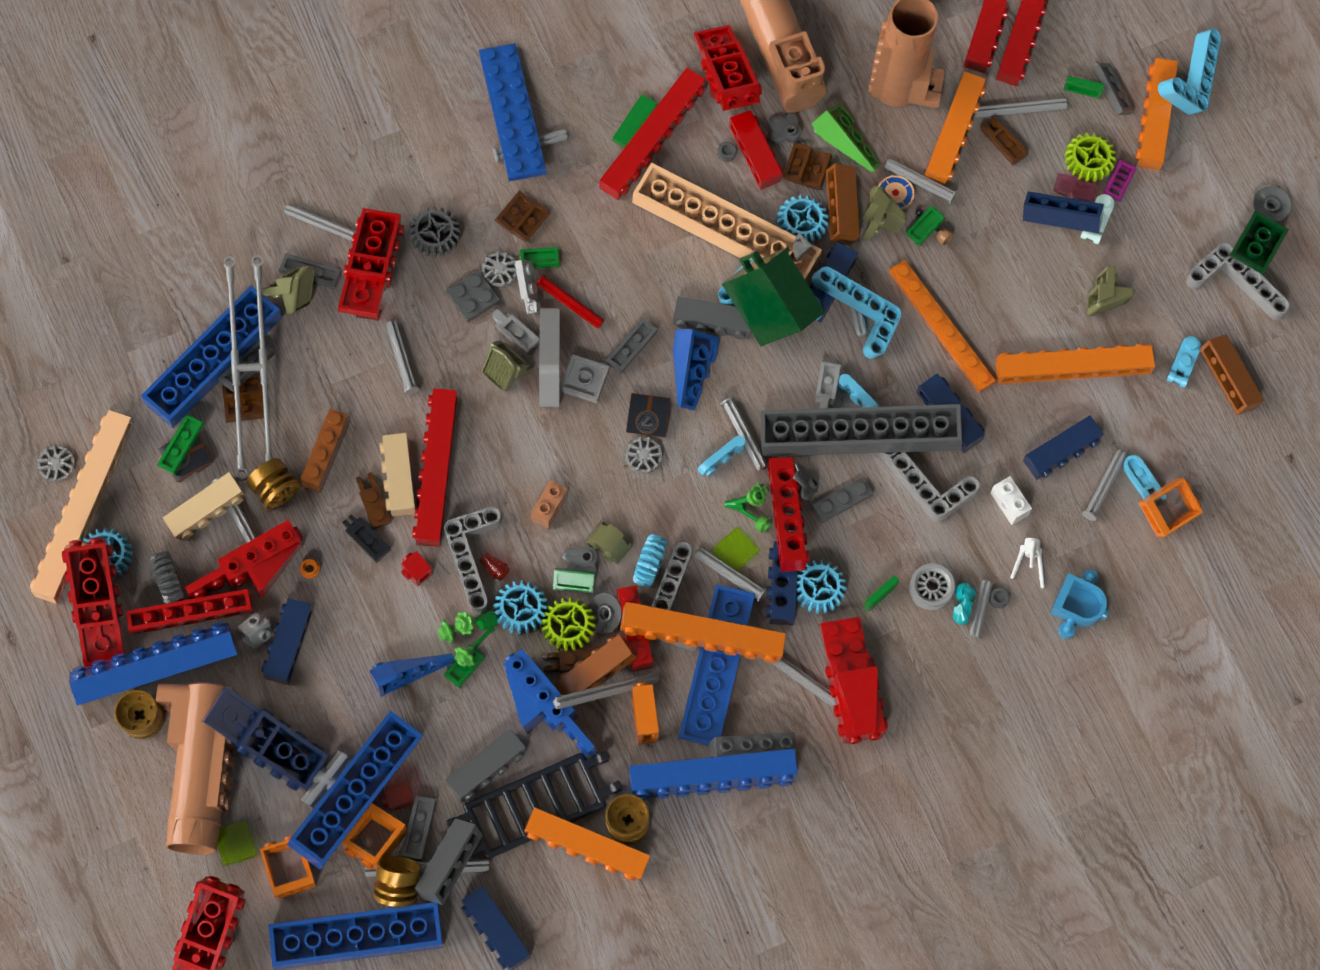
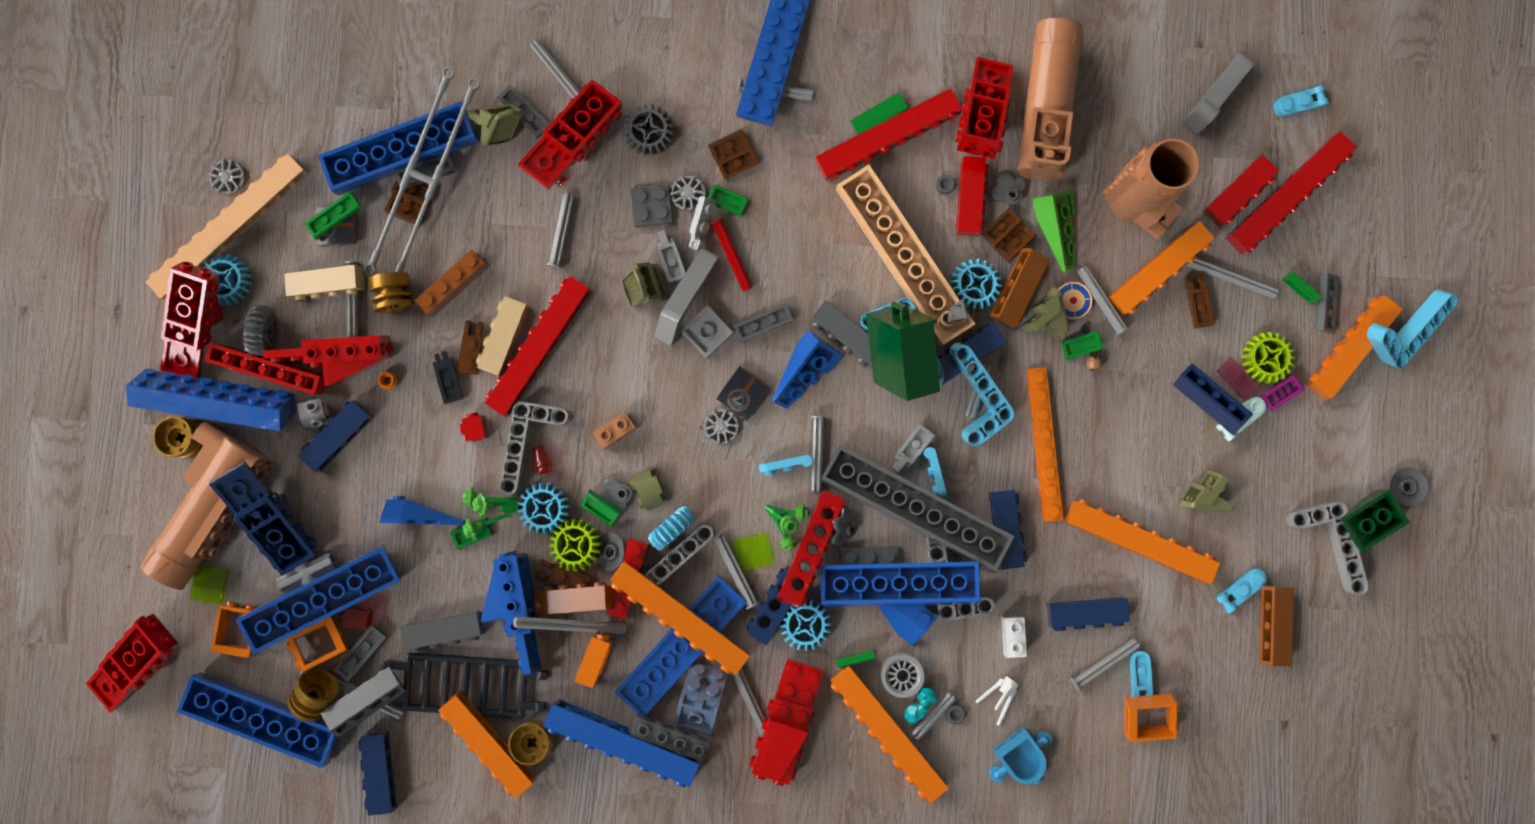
camera: 40 degrees right, 15 degrees up
(761, 696) = (699, 699): none -> sand blue bracket
(885, 501) = (901, 584): none -> blue brick
(899, 529) = (909, 621): none -> blue wedge
(949, 643) = (887, 731): none -> orange brick

